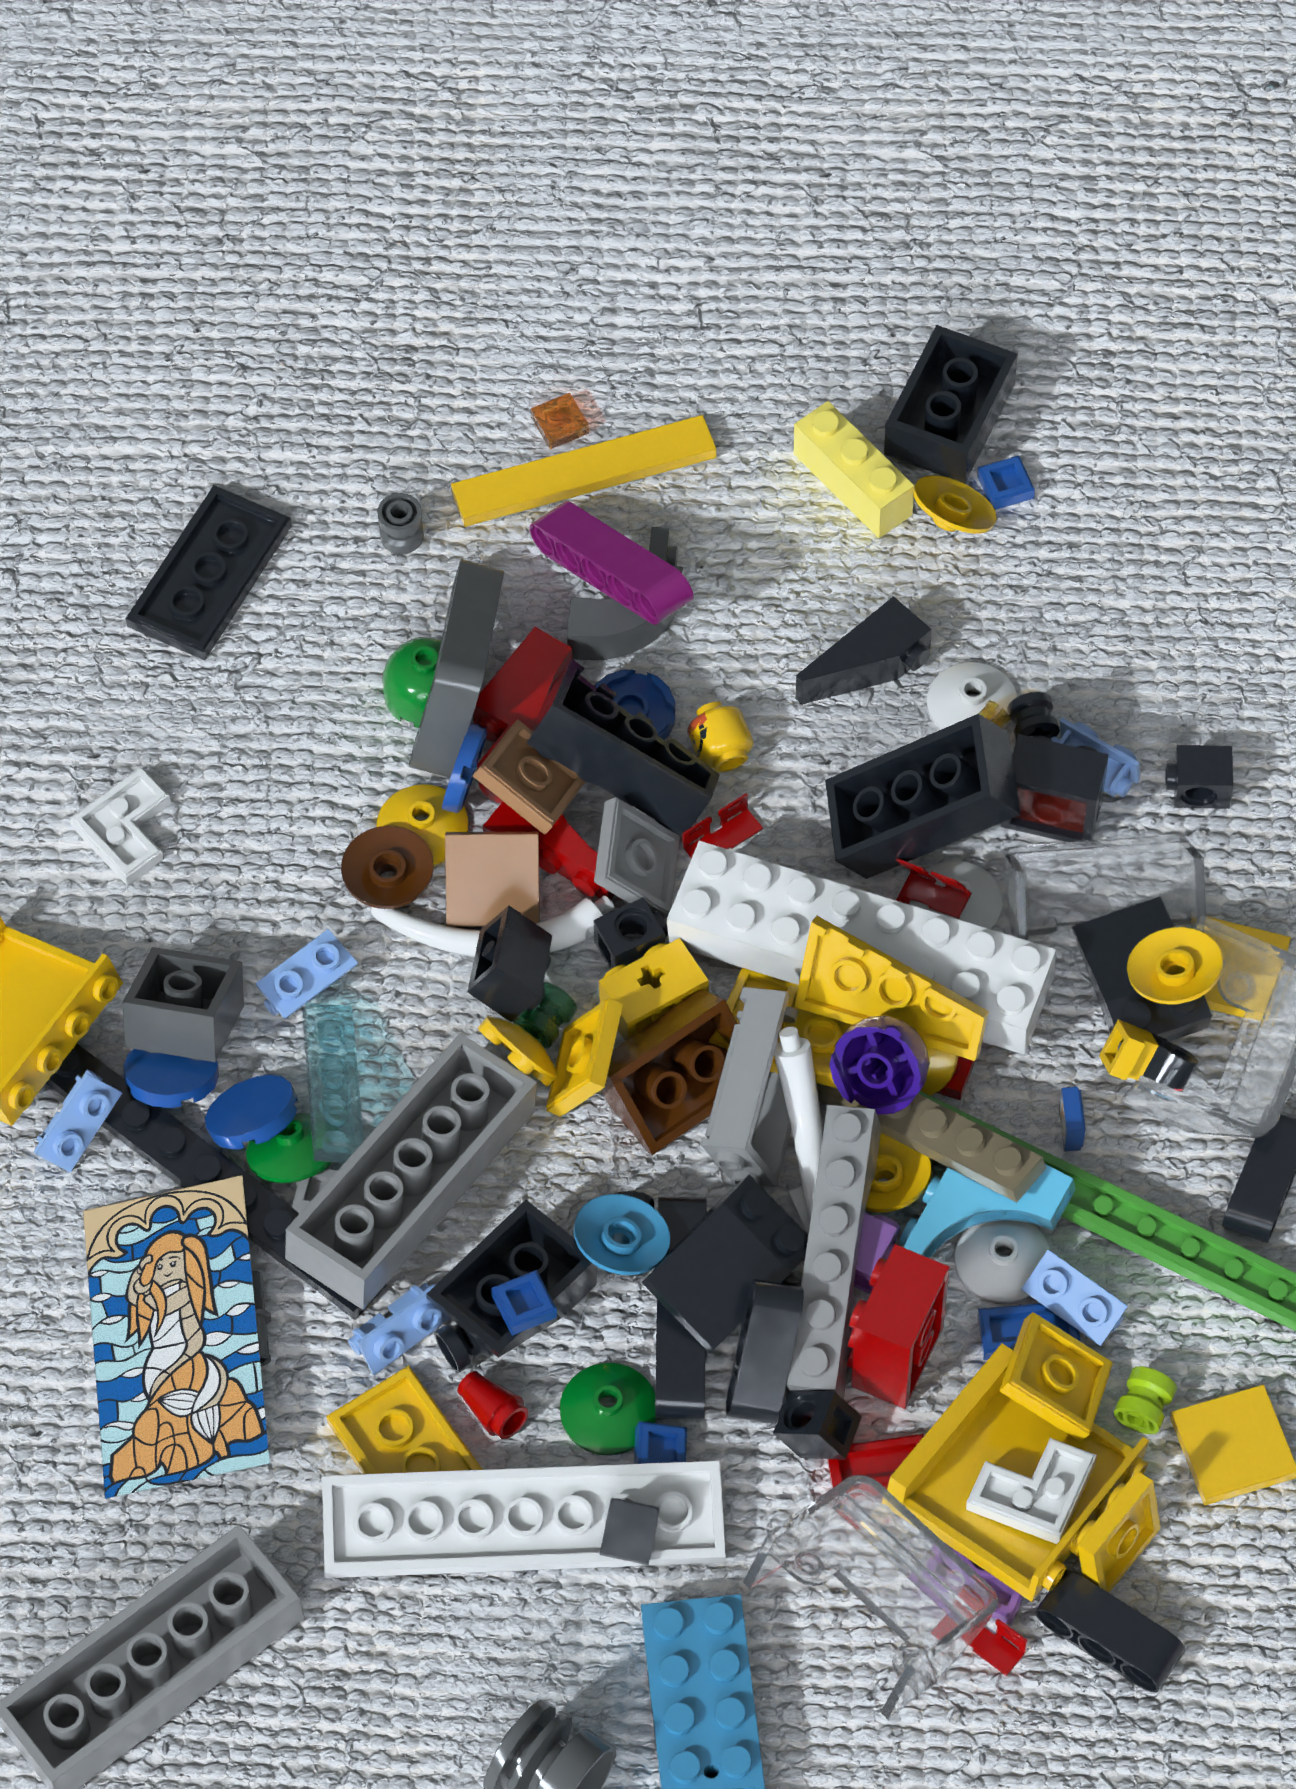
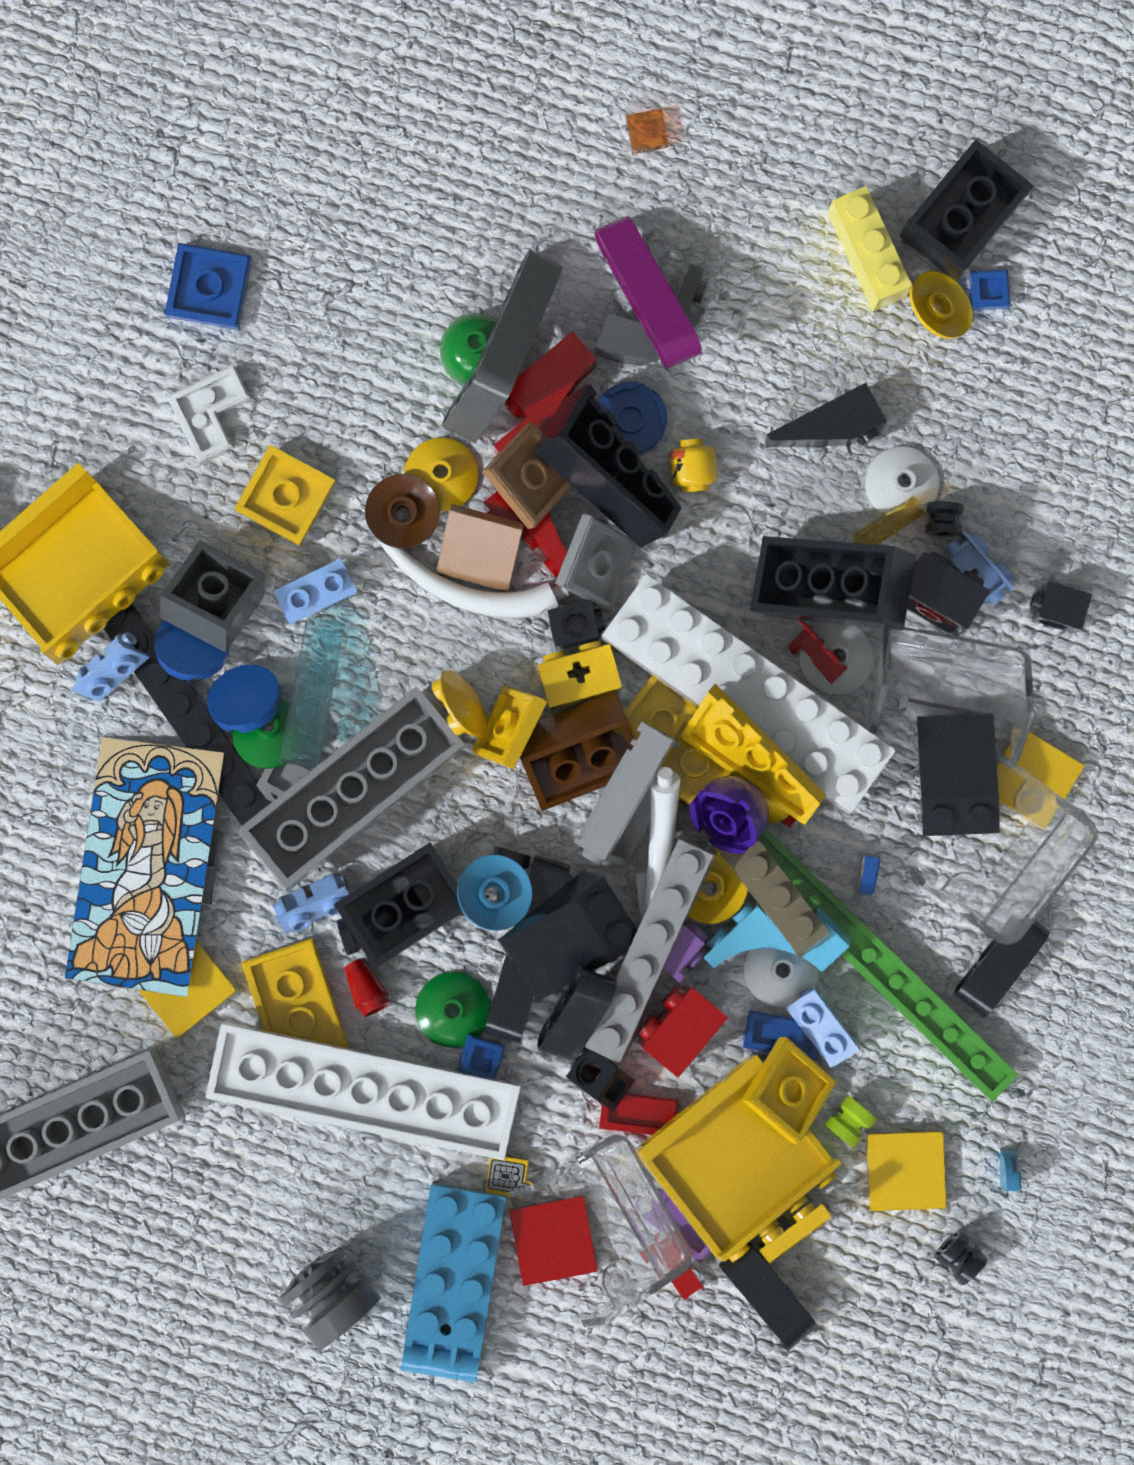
camera: 10 degrees right, 25 degrees up
(89, 696) = (208, 286): none -> blue tile
(208, 572) = (330, 197): black tile -> none
(241, 887) = (285, 495): none -> yellow plate
(270, 1489) = (206, 992): none -> yellow tile
(400, 523) = (493, 205): dark grey wheel -> none
(464, 768) = (482, 448): blue tile -> none
(510, 964) = (471, 635): black brick -> none
(524, 1302) = (404, 934): blue tile -> none
(548, 1016) = (490, 674): clear green wheel -> none
(583, 470) = (653, 185): yellow tile -> none
(629, 1531) = (437, 1129): black slope -> none
(727, 1578) = (506, 1175): none -> tile
(732, 831) = (676, 551): red piece -> none
(816, 1643) = (553, 1240): none -> red tile
(1038, 1503) = (746, 1189): white tile -> none
(1146, 1056) = (939, 854): leg -> none
(1175, 965) = (983, 778): yellow dish -> none

